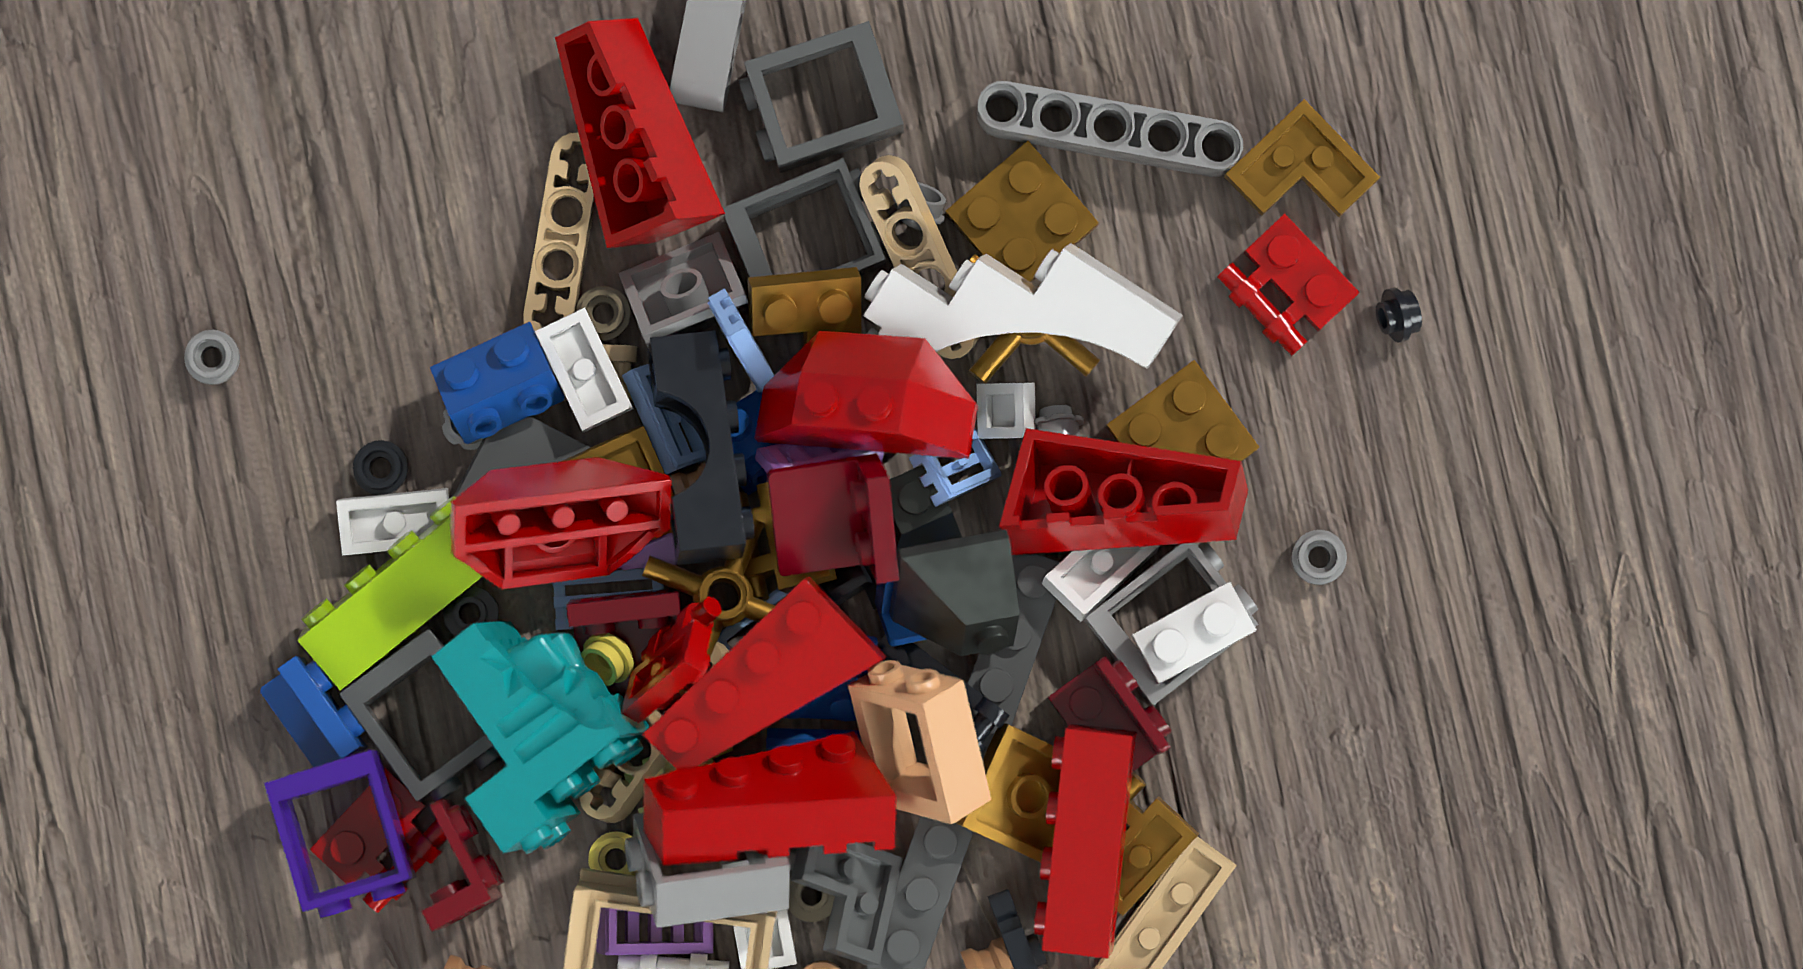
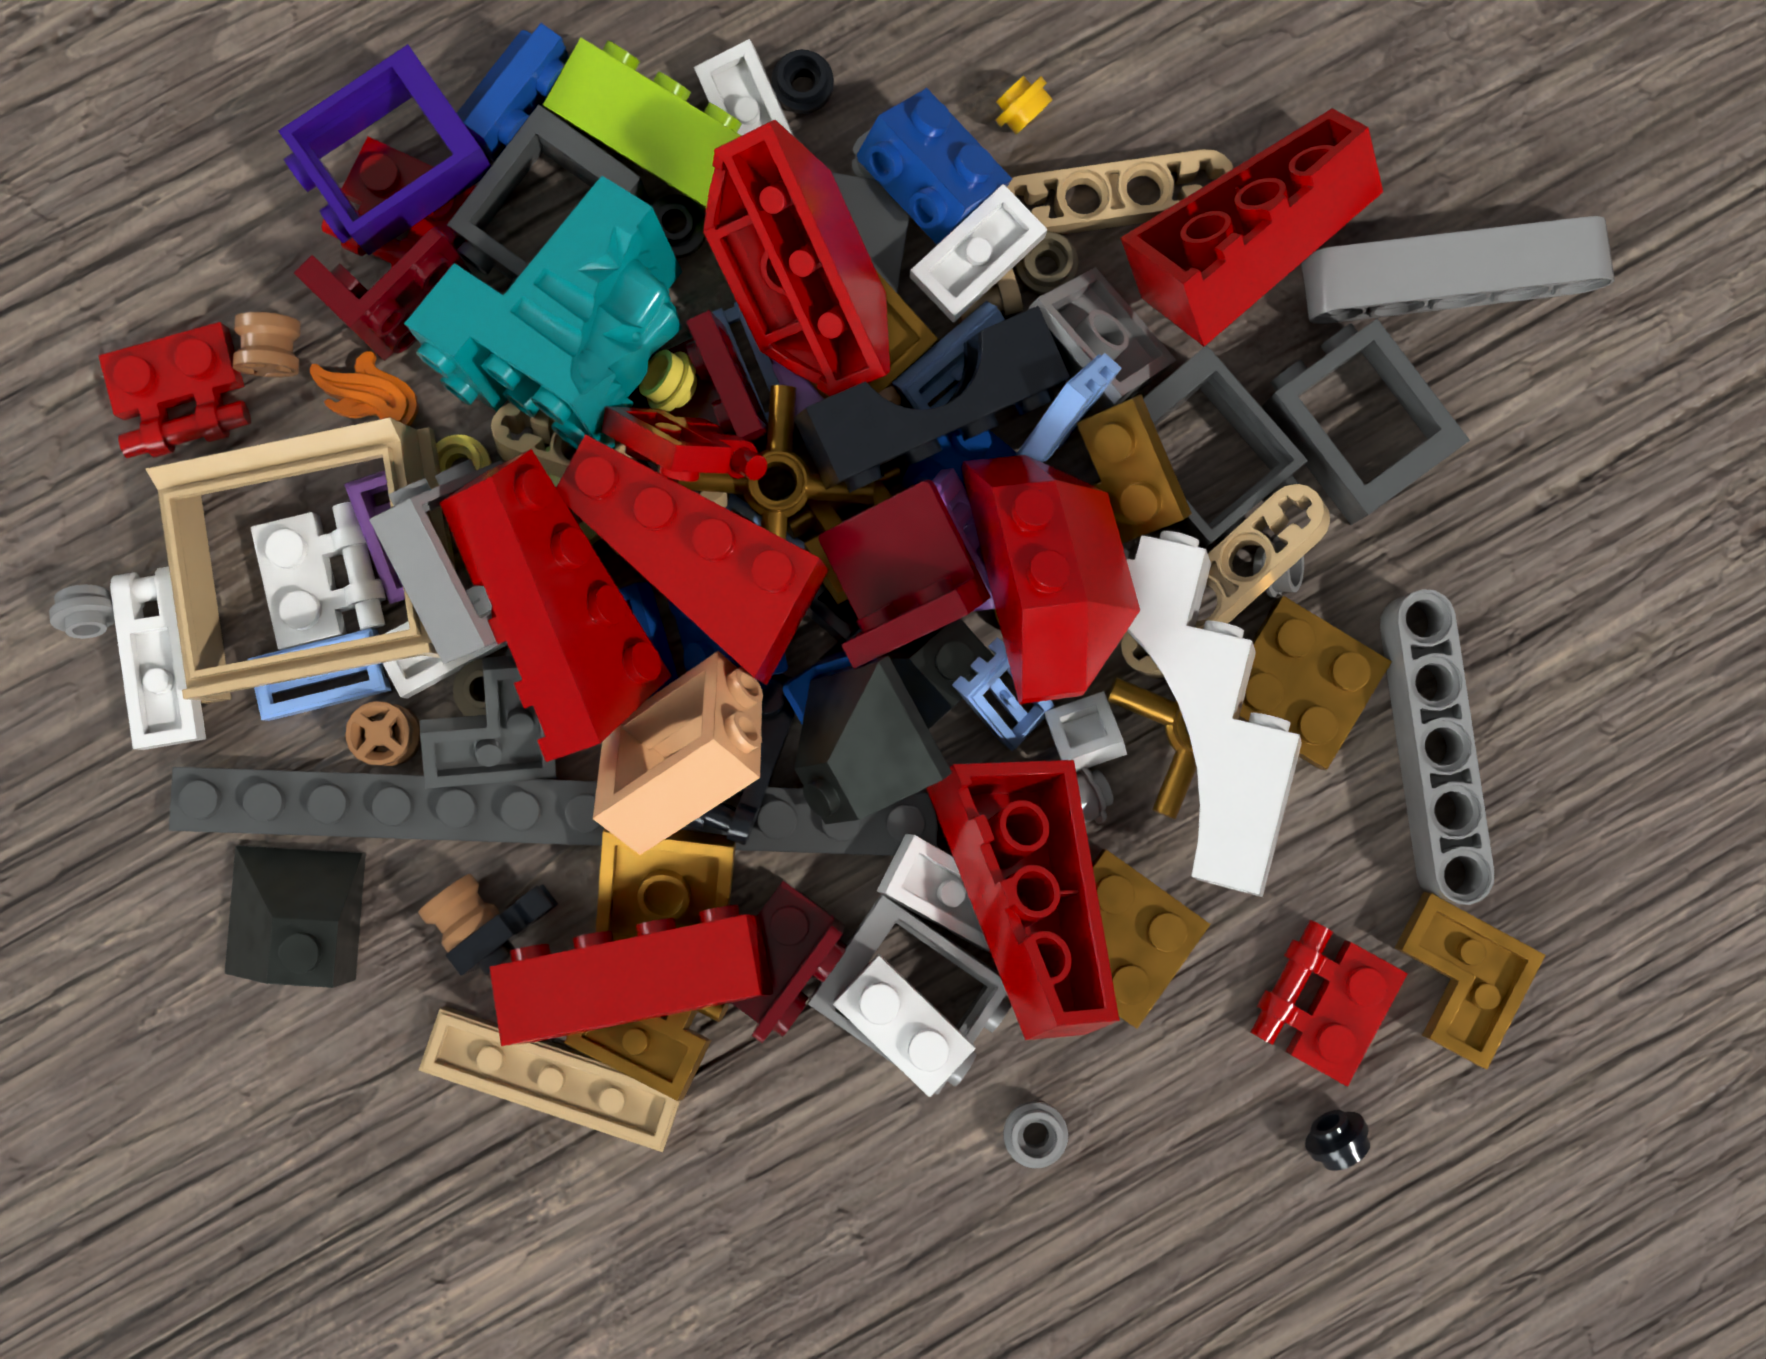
camera: 65 degrees right, 0 degrees up
(462, 289) = (1022, 103): none -> yellow plate
(529, 915) = (367, 392): none -> orange piece

